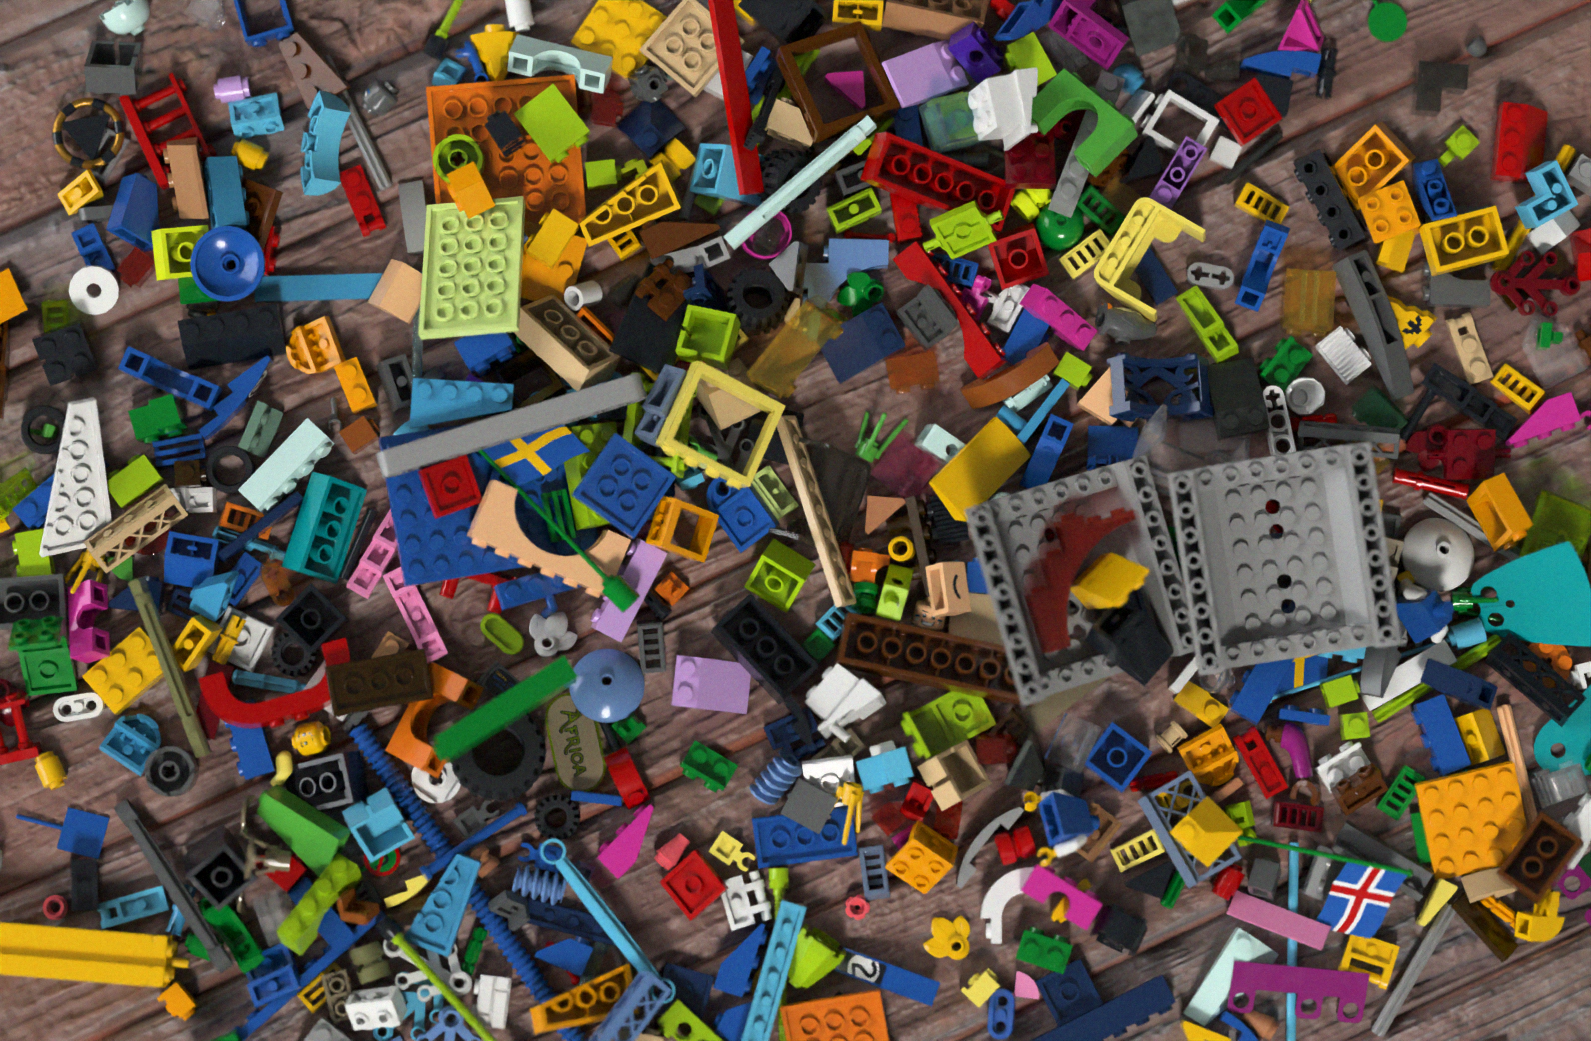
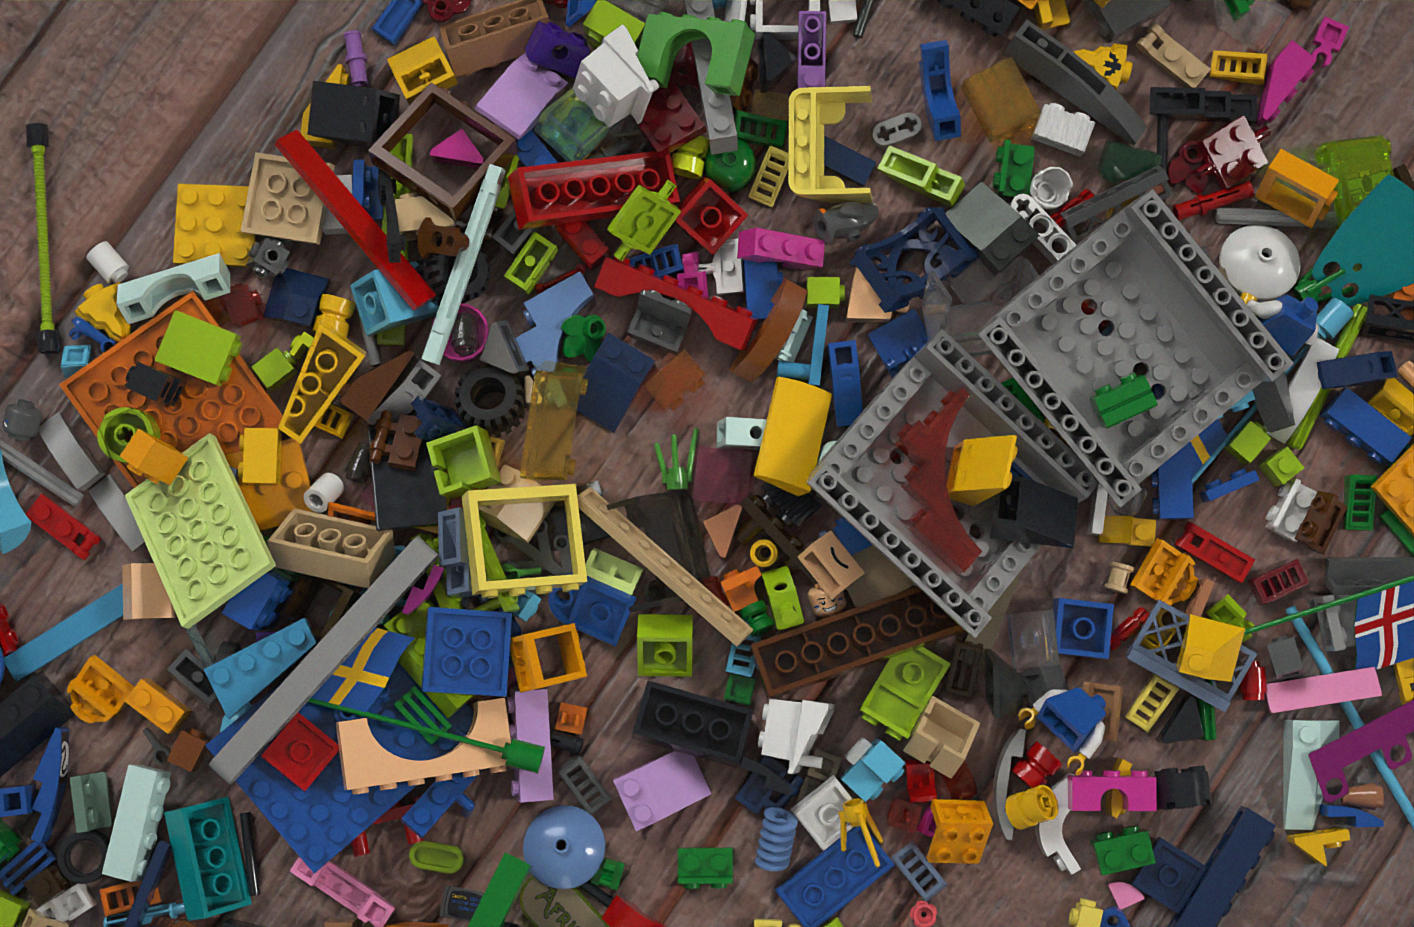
camera: 30 degrees left, 0 degrees up
(375, 559) = (273, 863): bright pink slope -> none
(402, 144) = (70, 452): none -> light grey slope
(552, 630) = (482, 825): white plate -> none
(612, 421) = (418, 596): none -> magenta slope
(801, 160) = (452, 239): none -> reddish brown piece
(809, 805) = (822, 846): dark grey piece -> none
(946, 935) = (1022, 891): yellow plate -> none
(991, 871) = (1031, 807): none -> yellow wheel
(995, 748) = (964, 688): clear red brick -> none
(1249, 188) = (905, 47): yellow slope -> none
(1253, 595) = (1123, 400): none -> green brick
(1296, 744) = (1238, 515): magenta piece -> none

